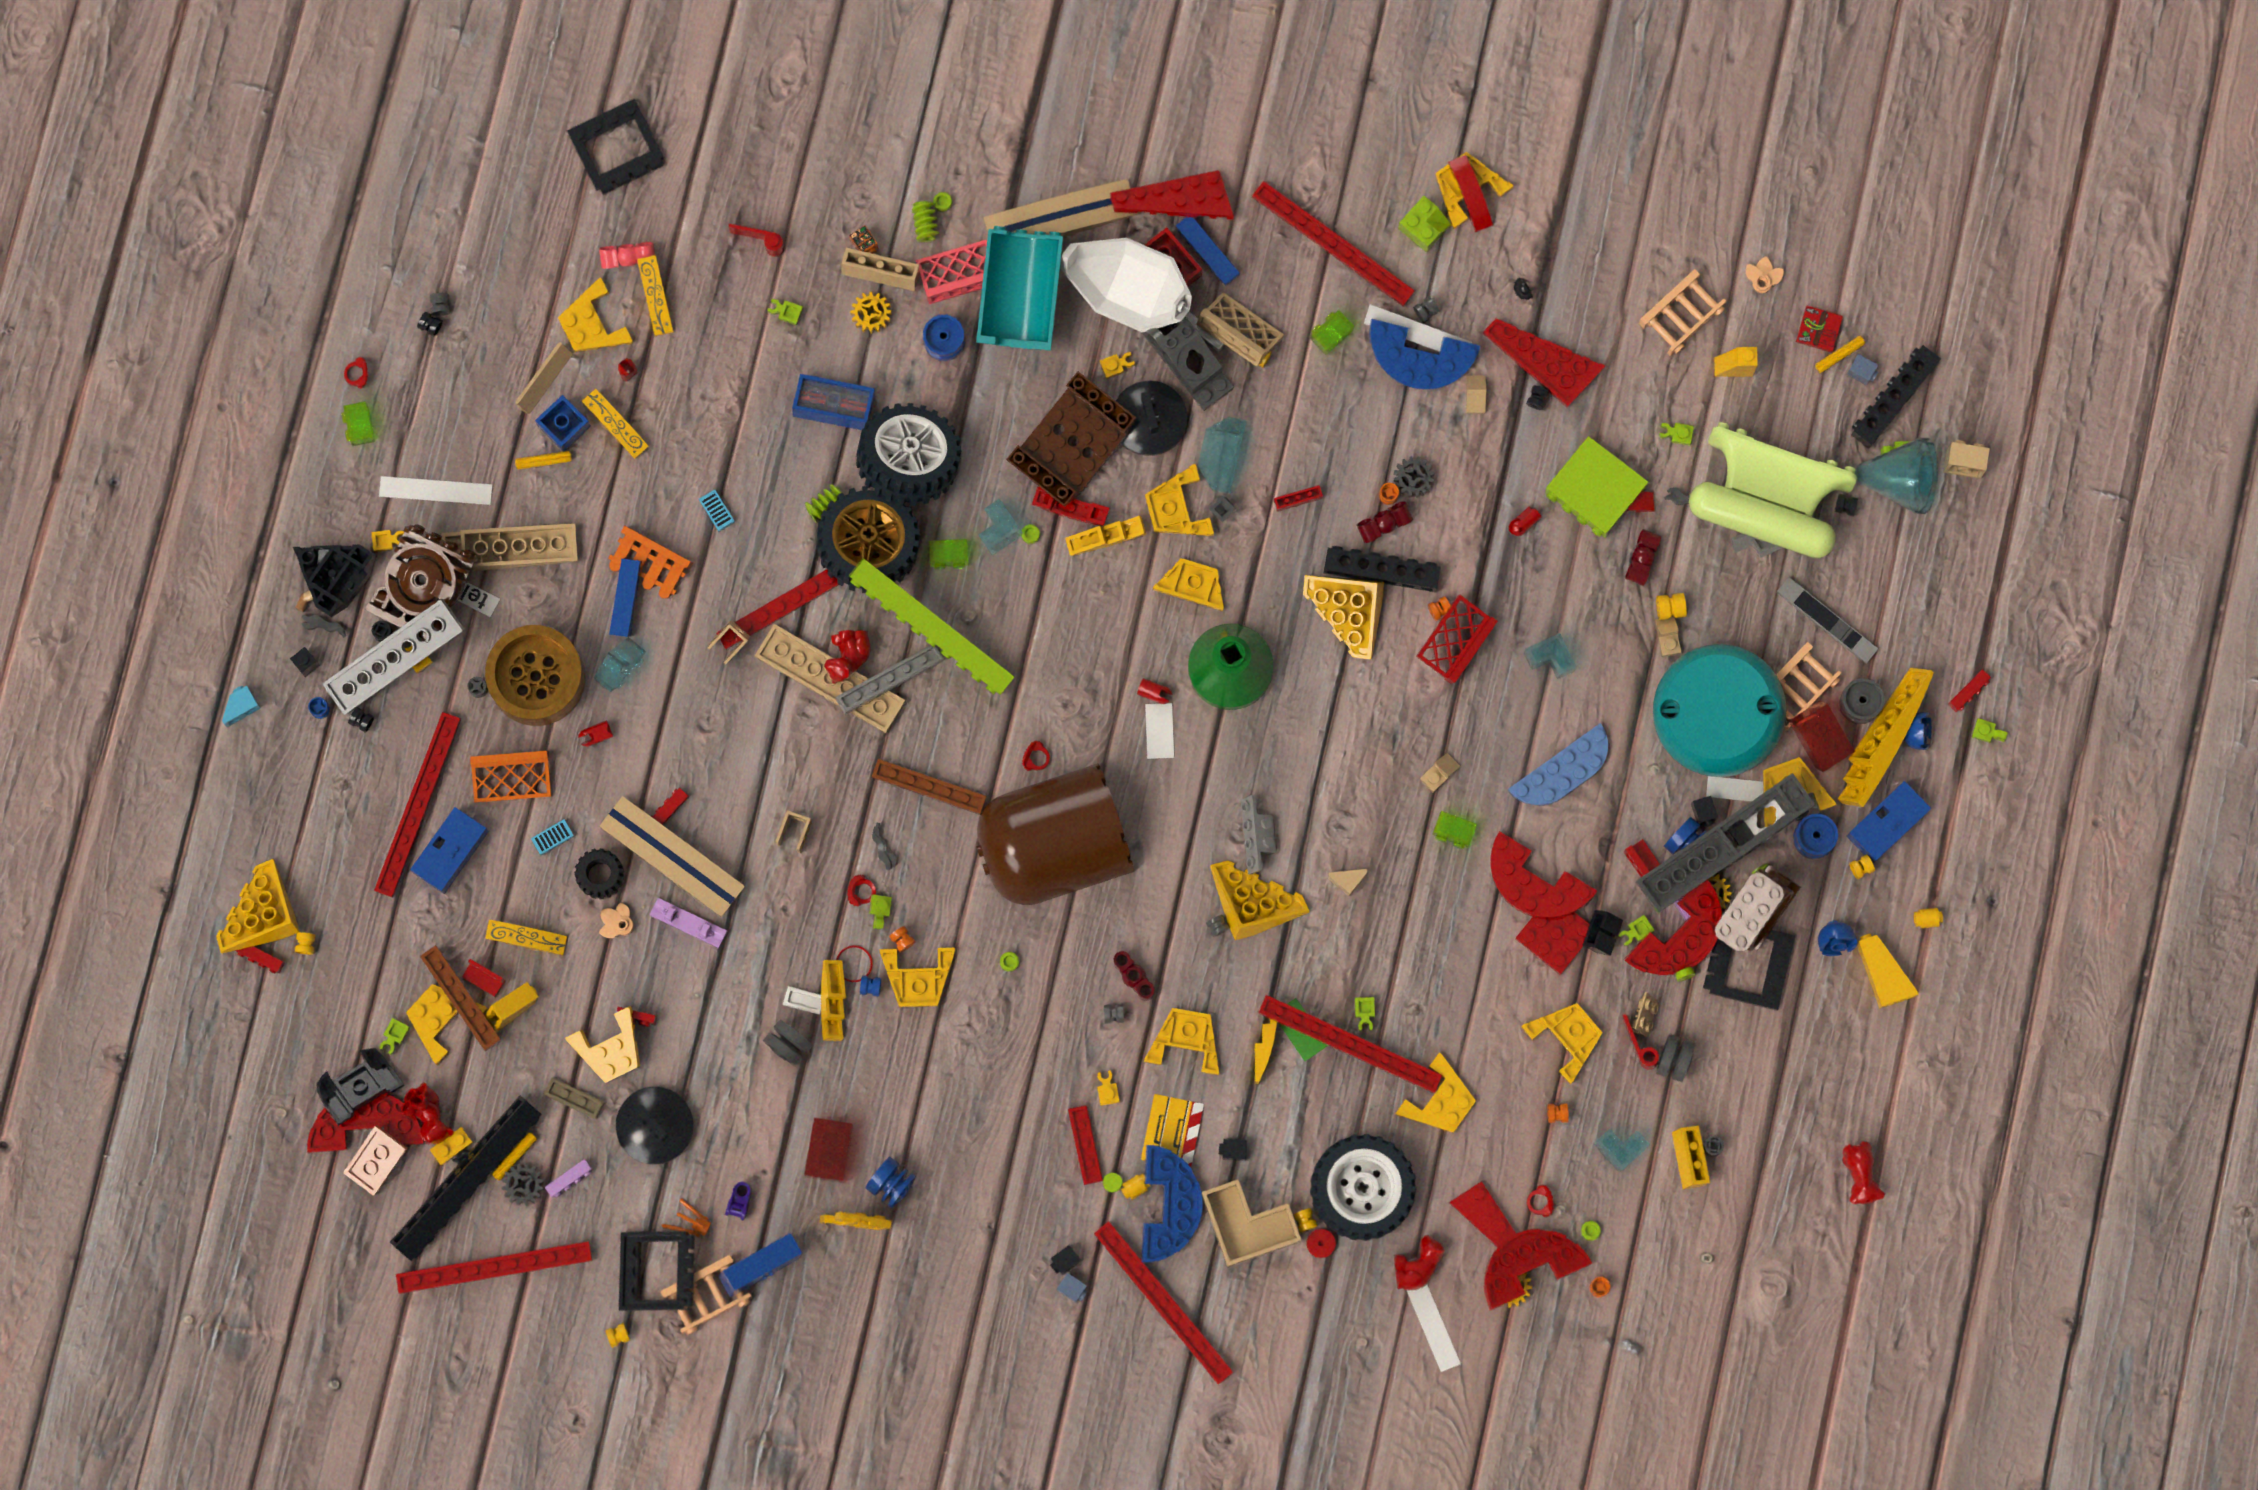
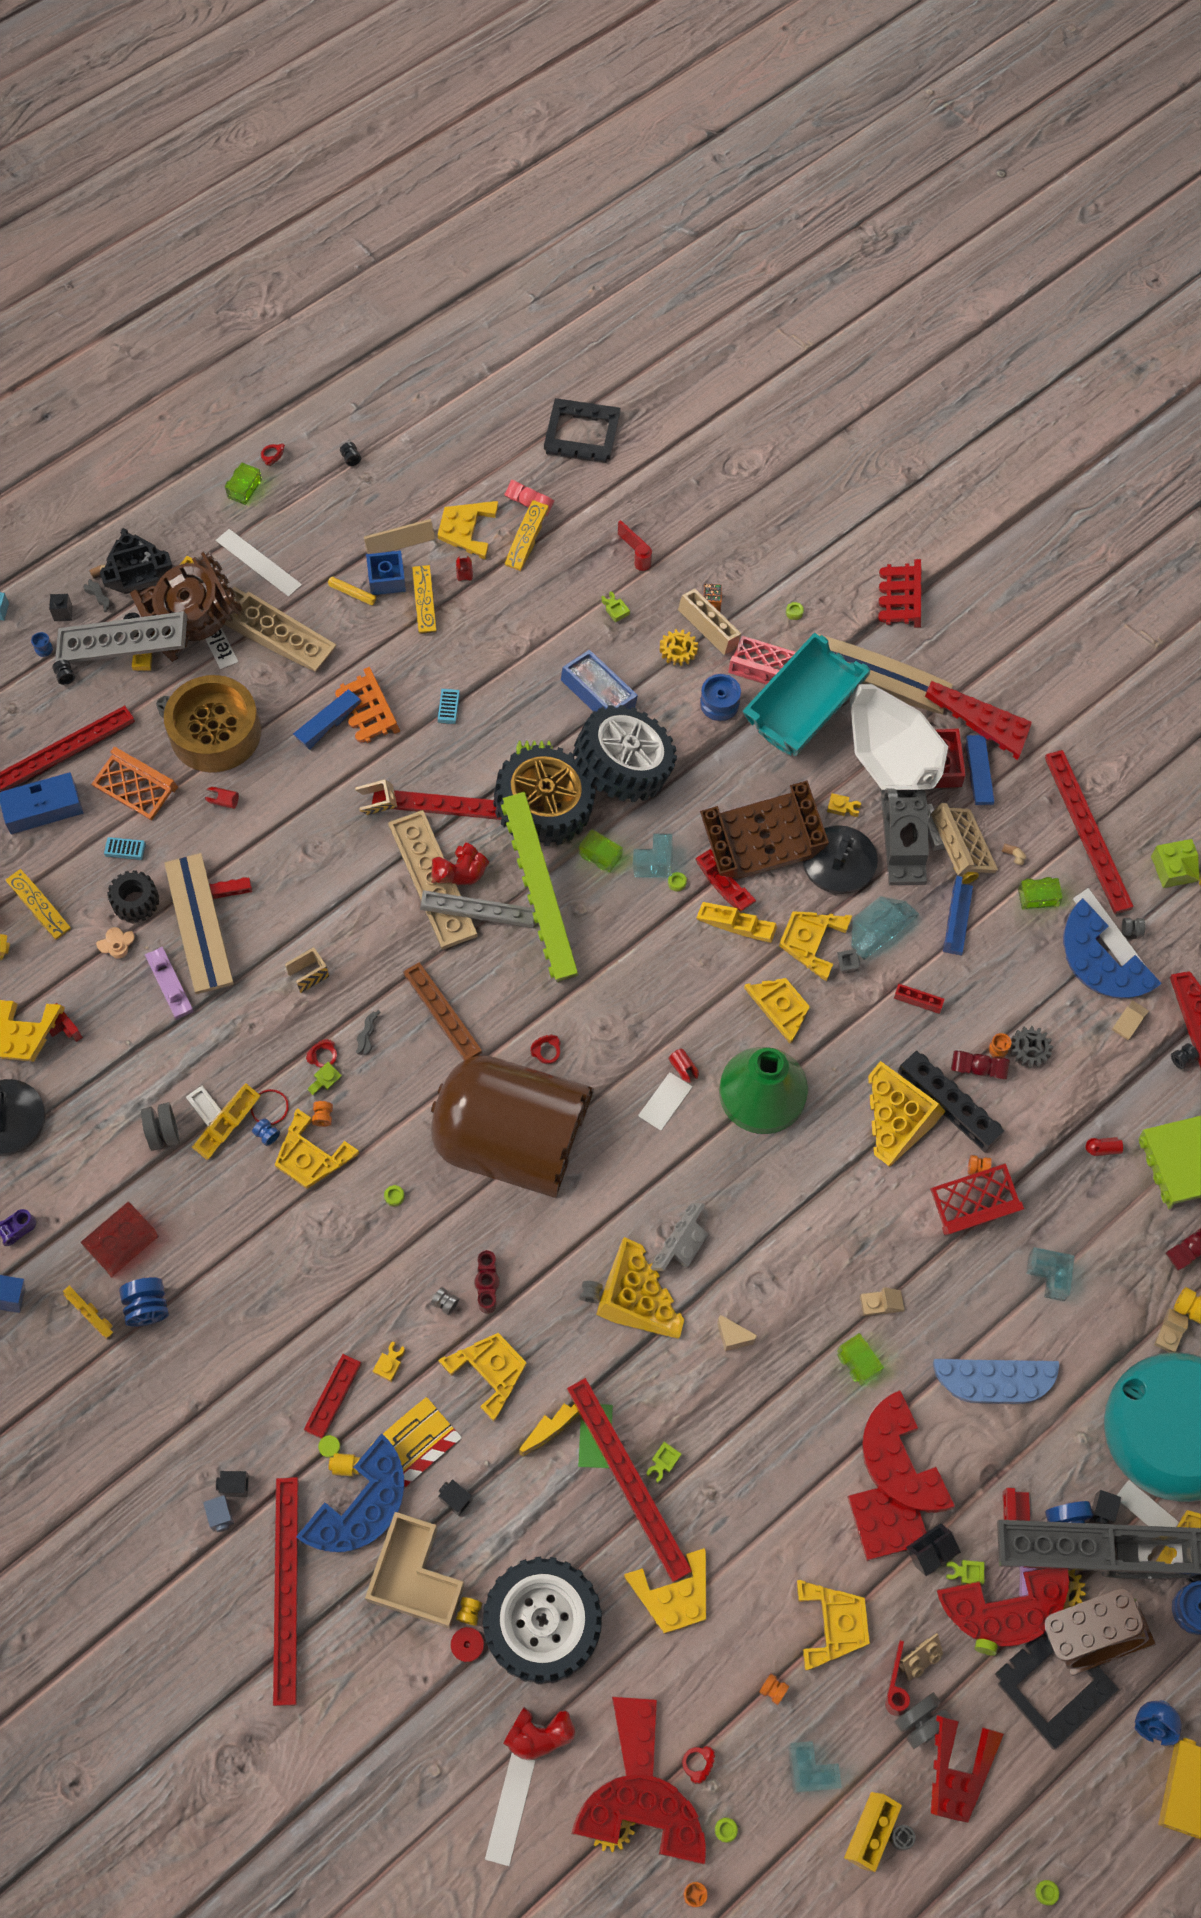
camera: 35 degrees right, 15 degrees down
(439, 304) = (368, 447): dark grey wheel -> none
(619, 664) = (281, 755): clear light blue brick -> none
(924, 221) = (770, 613): lime piece -> none
(1023, 108) = (901, 600): none -> red fence
(1280, 402) = (957, 917): none -> blue fence
(1288, 306) = (1016, 851): none -> arm
(1729, 1088) = (955, 1790): none -> red wing
(1833, 1109) = (1047, 1892): none -> lime tile

